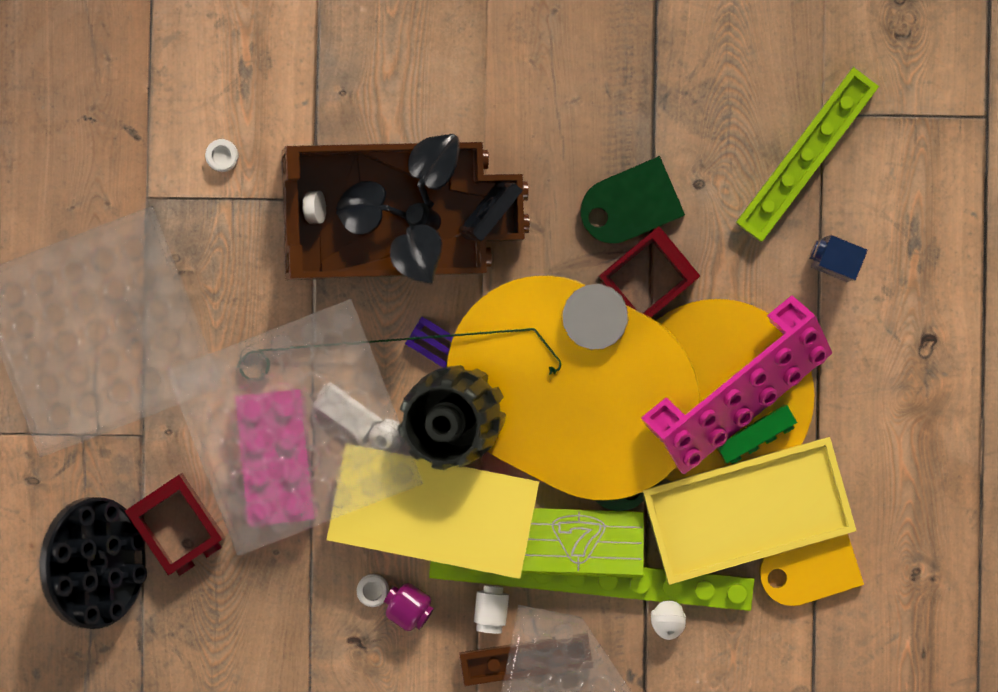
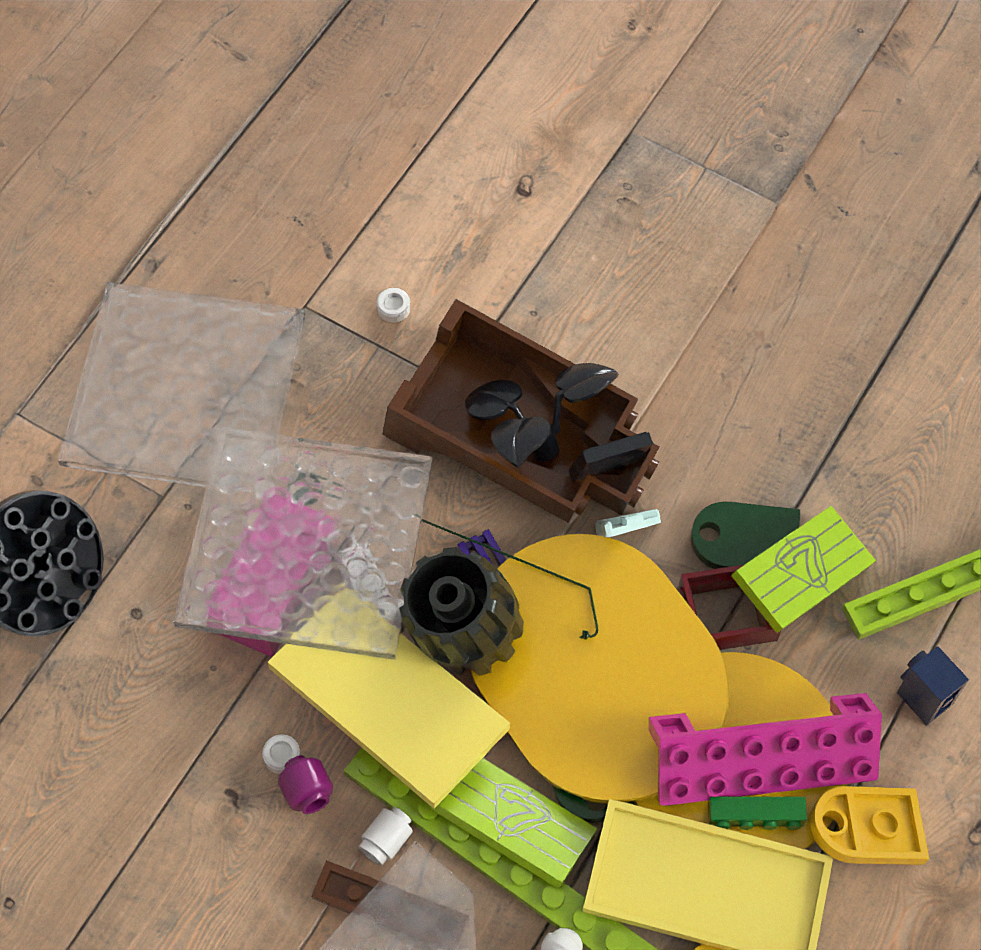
camera: 20 degrees right, 25 degrees down
(156, 497) = (136, 551): dark red window -> none
(314, 207) = (448, 382): white tile -> none
(527, 254) = (626, 523): none -> light aqua tile
(595, 316) = (657, 602): light grey tile -> none
(691, 213) = (803, 569): none -> lime tile
(846, 392) = (873, 825): none -> yellow tile

